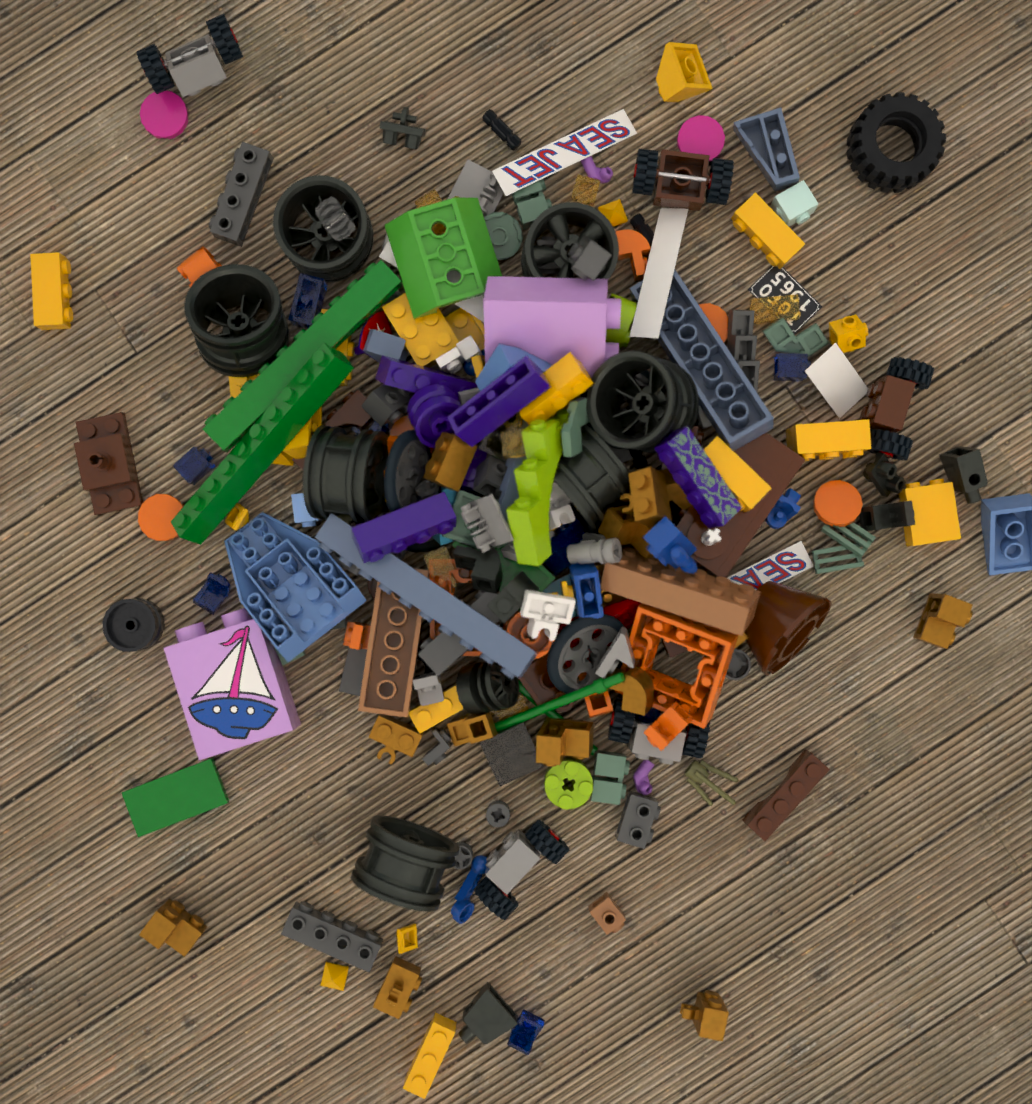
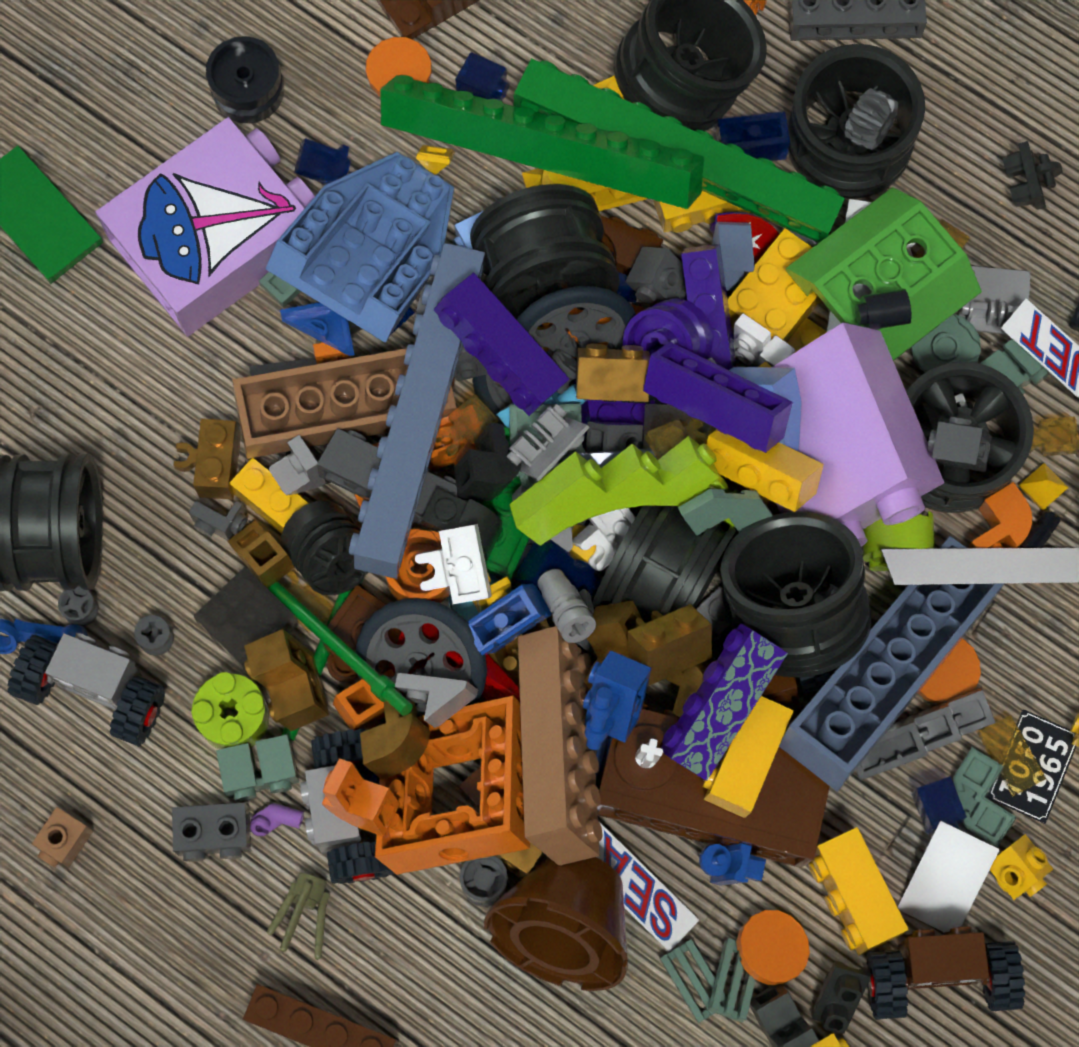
camera: 70 degrees right, 15 degrees down
(338, 638) = (320, 324): none -> blue tile
(476, 267) = (884, 309): none -> black brick

